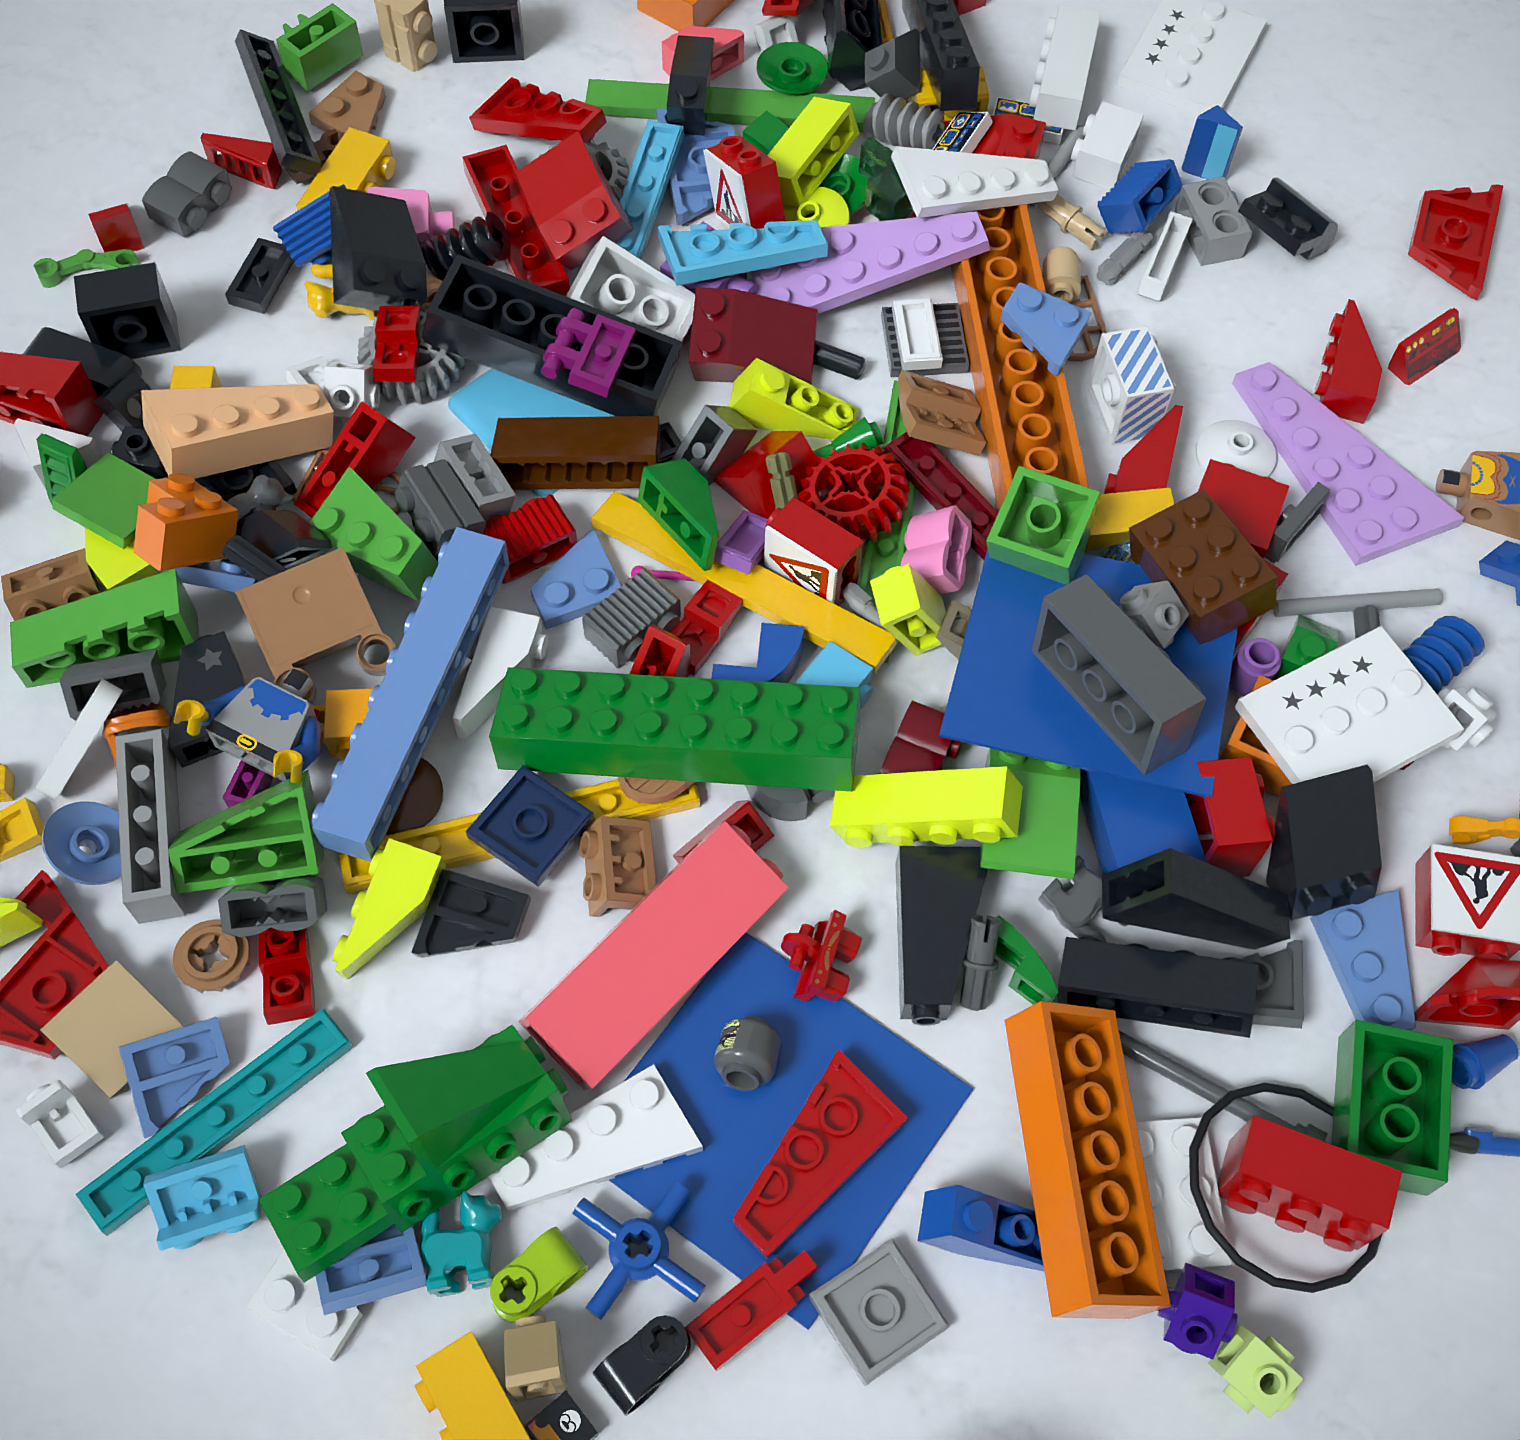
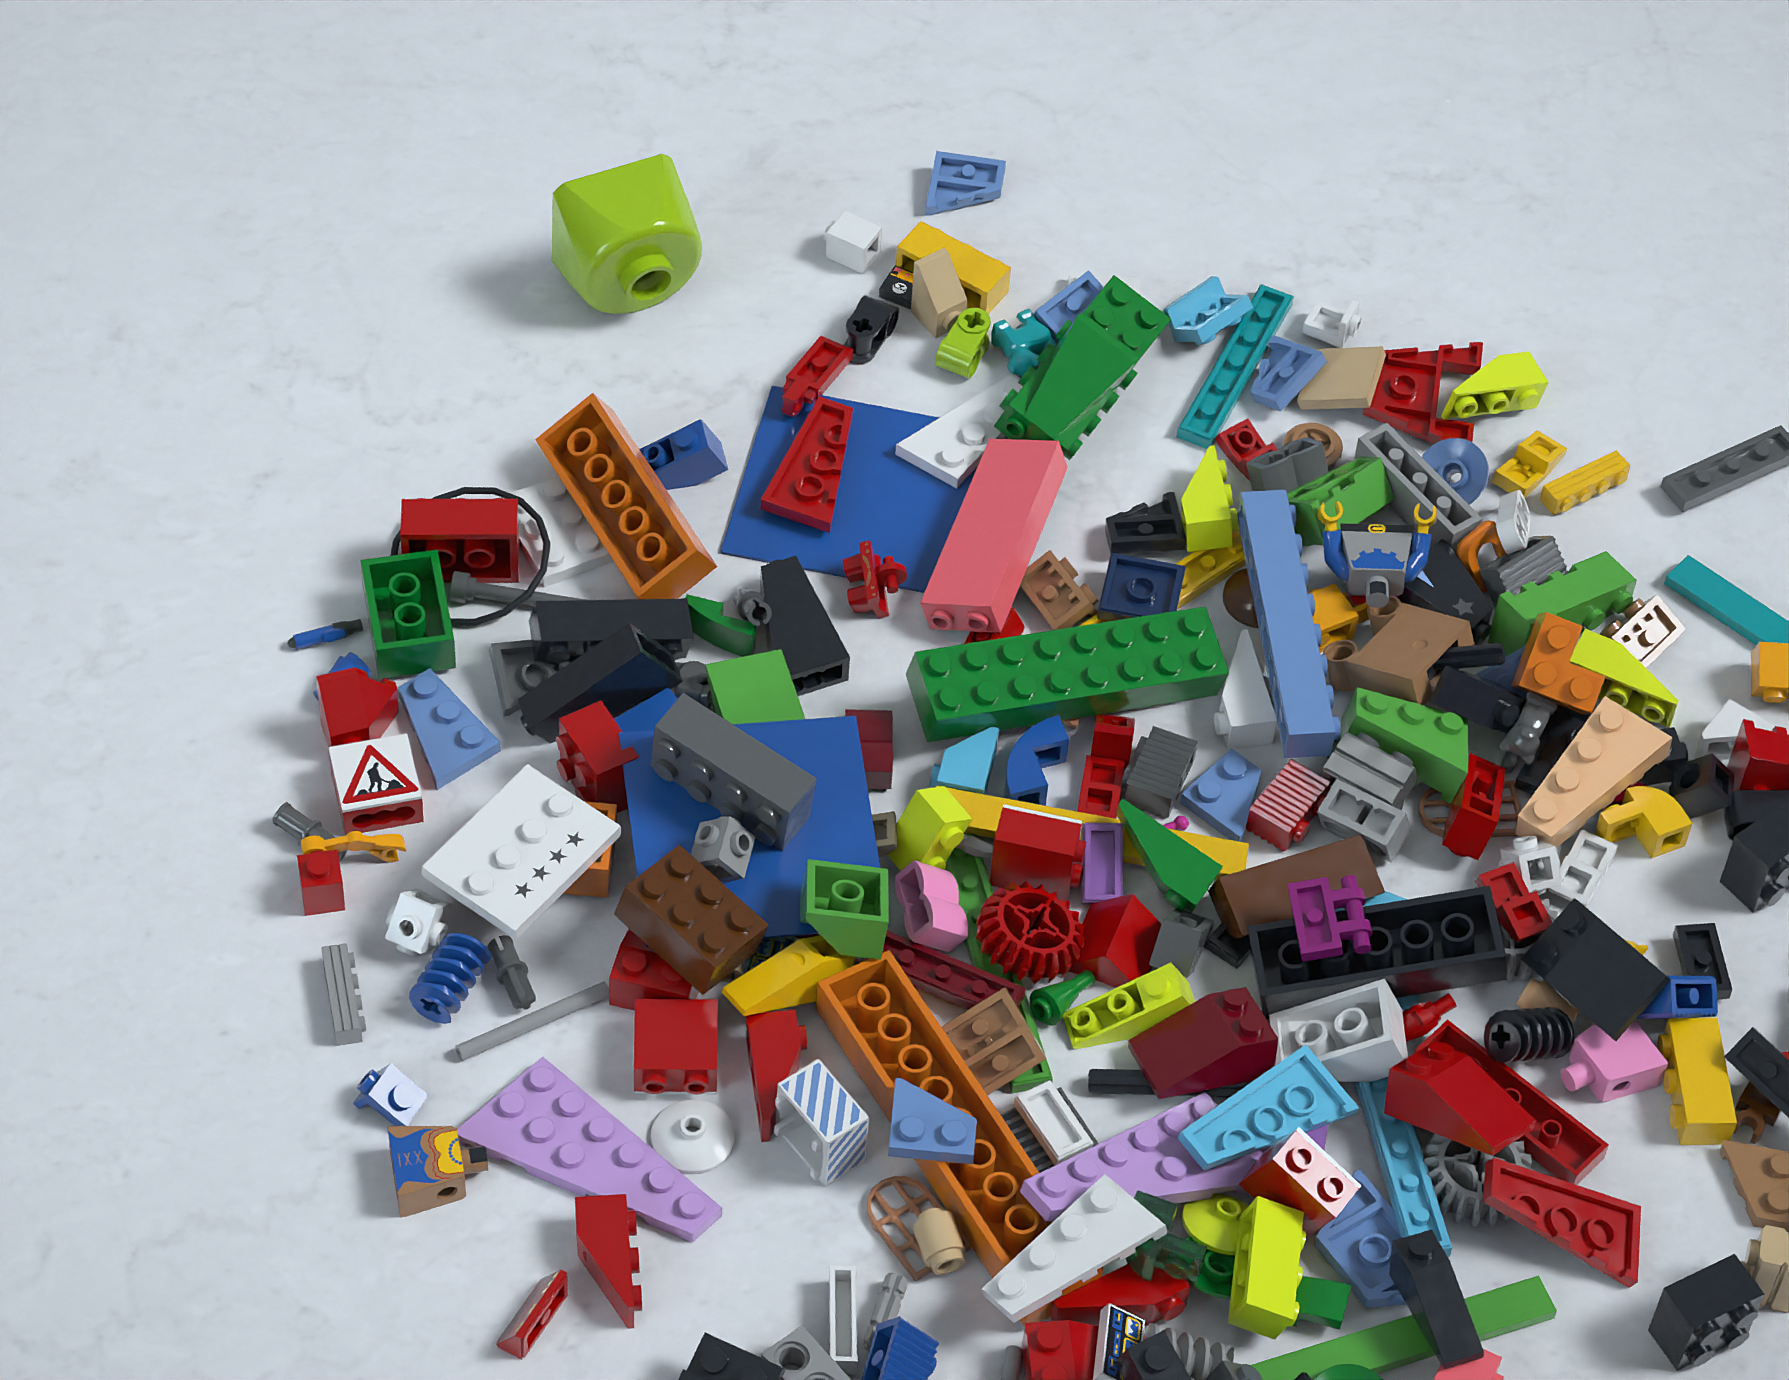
camera: 155 degrees right, 10 degrees down
(59, 463) = (1697, 705): green slope -> none
(106, 499) = (1641, 683): bright green tile -> none
(641, 1267) = (906, 378): blue bar -> none
(747, 1053) = (894, 502): dark grey head -> none
(783, 482) = (1095, 911): olive axle -> none
(878, 1311) = (729, 404): light grey tile -> none
(929, 807) = (838, 675): neon yellow brick -> none
(1073, 221) = (959, 1330): tan axle -> none
(1200, 1312) = (512, 469): dark purple brick -> none
(1254, 659) = (604, 900): medium lavender brick -> none
(1257, 1372) = (463, 436): yellowish green brick -> none
(1295, 521) = (615, 1063): dark grey plate -> none
(1306, 643) = (567, 946): green slope -> none
(1326, 843) = (493, 762): black slope -> none

